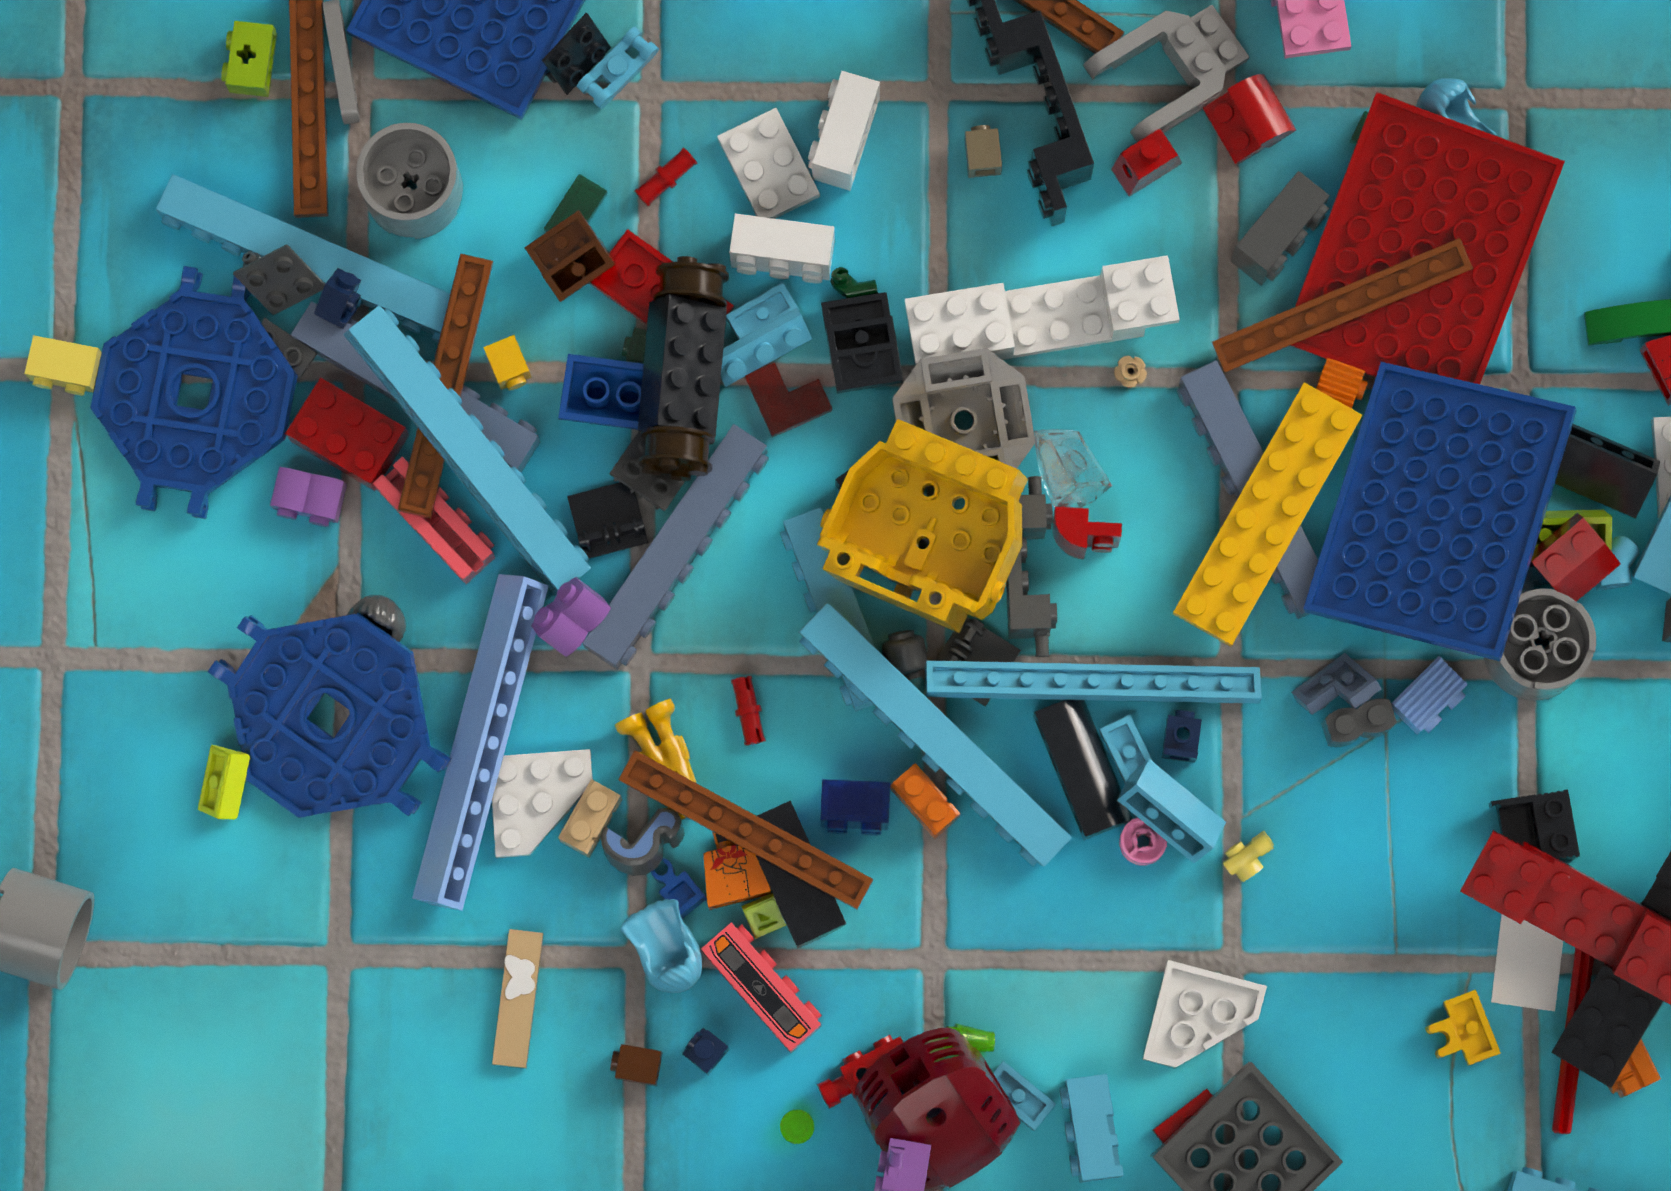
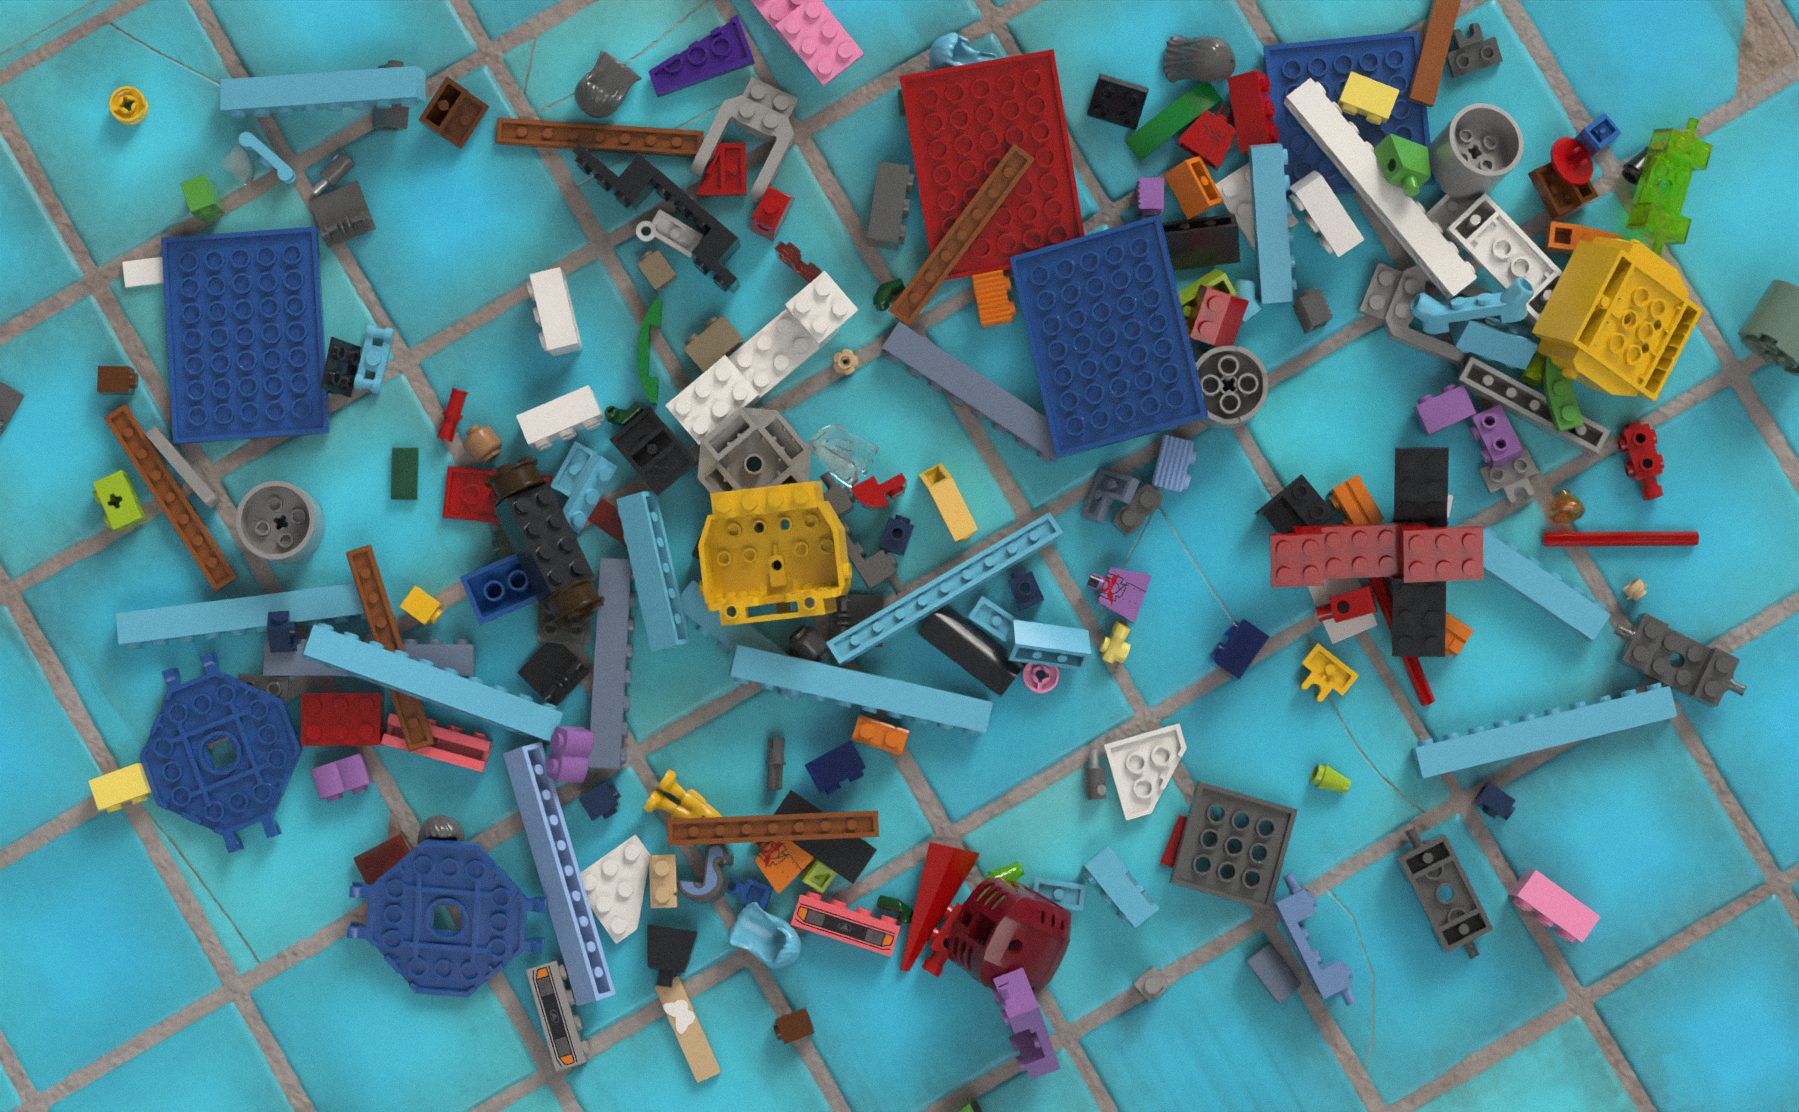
camera: 30 degrees left, 5 degrees up
(223, 782) = (403, 1004): neon yellow slope -> none
(278, 278) = (231, 642): dark grey hinge -> none
(296, 608) = (381, 858): none -> clear red plate
(384, 896) = (557, 1015): none -> brick
(549, 900) = (669, 951): none -> black torso
(570, 256) = (420, 508): reddish brown brick -> none
(574, 690) = (601, 801): none -> dark blue brick
(679, 227) = (482, 443): none -> medium nougat head
(705, 1050) = (833, 989): dark blue brick -> none
(748, 710) = (725, 744): red pin -> none
(768, 165) = (517, 365): white plate -> none
(783, 471) = (653, 571): none -> medium azure brick
(790, 763) = (775, 763): none -> dark grey axle
(797, 1126) = (924, 1002): clear neon green tile -> none
(831, 1001) = (896, 905): none -> dark green arm
(898, 1000) = (940, 881): none -> red wedge
(944, 202) = (652, 320): none -> green slope
(996, 264) = (713, 343): none -> dark tan brick
(1022, 119) = (671, 232): none -> white hinge
(1075, 593) = (897, 535): none -> dark blue brick
(1122, 91) = (726, 172): none -> red wing
(1135, 992) = (1095, 778): none -> dark grey piece
(1138, 220) = (792, 258): none -> clear red plate
(1153, 591) = (948, 502): none -> yellow slope
(1220, 320) = (884, 293): none -> dark green arm
(1249, 118) = (823, 141): red brick -> none
(1267, 514) = (994, 406): yellow plate -> none
(1287, 801) = (1120, 591): none -> medium lavender torso
(1381, 943) = (1238, 649): none -> clear blue brick
(1399, 1150) = (1328, 779): none -> lime cone
(1549, 974) = (1360, 603): none -> red torso
(1577, 384) = (1149, 197): none -> medium lavender brick
(1601, 263) = (1117, 101): none -> black bracket
(1609, 857) = (1355, 503): none -> orange brick
(1632, 405) = (1193, 187): none -> orange brick

